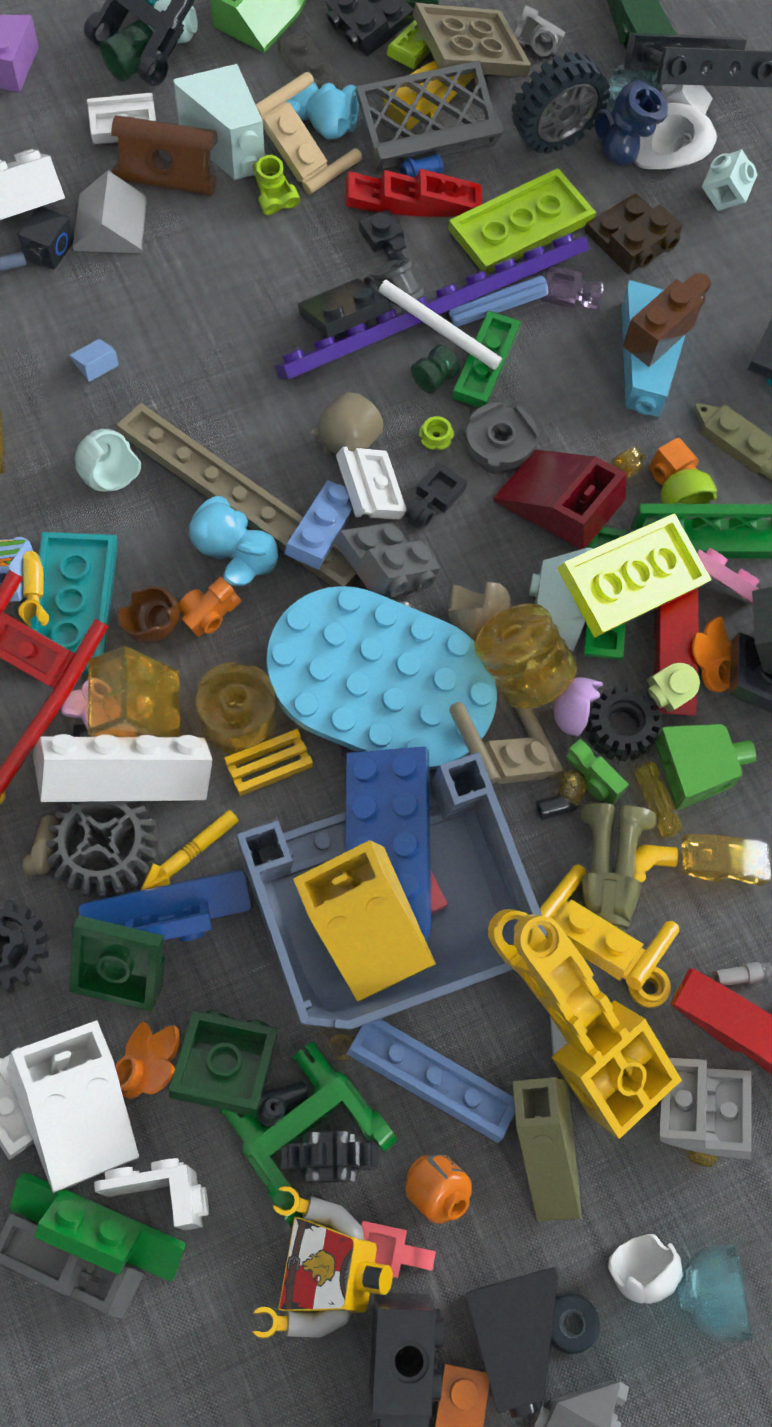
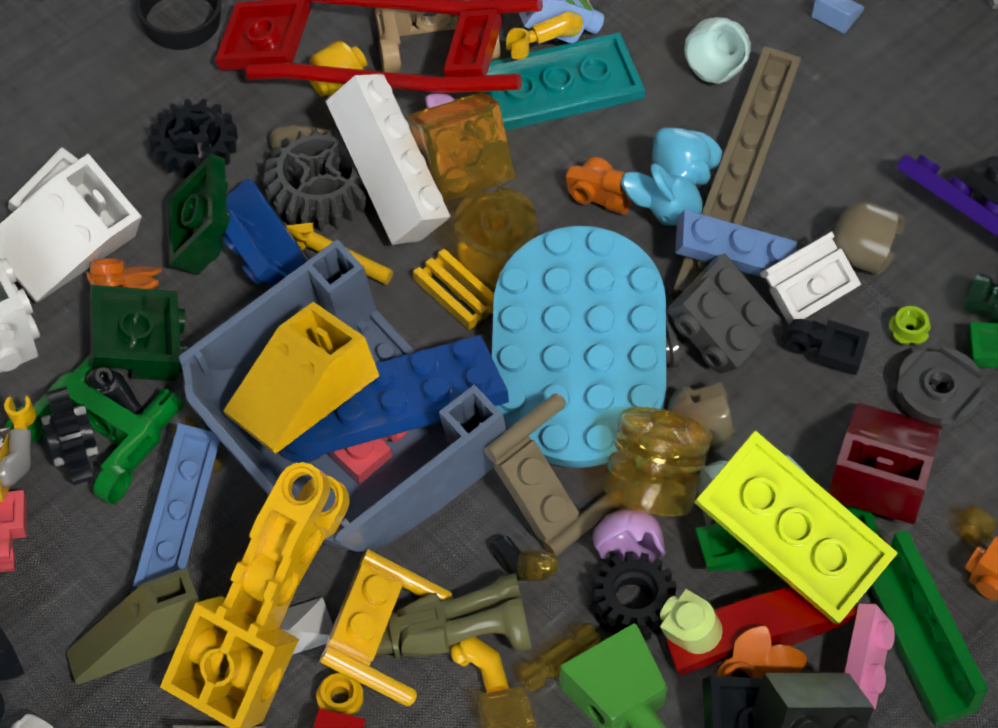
camera: 75 degrees right, 10 degrees down
(149, 615) = (563, 140): reddish brown hair -> none
(438, 1188) = (69, 542): orange head -> none
(600, 777) = (555, 588): bright green plate -> none
(688, 487) = (960, 586): lime hair -> none

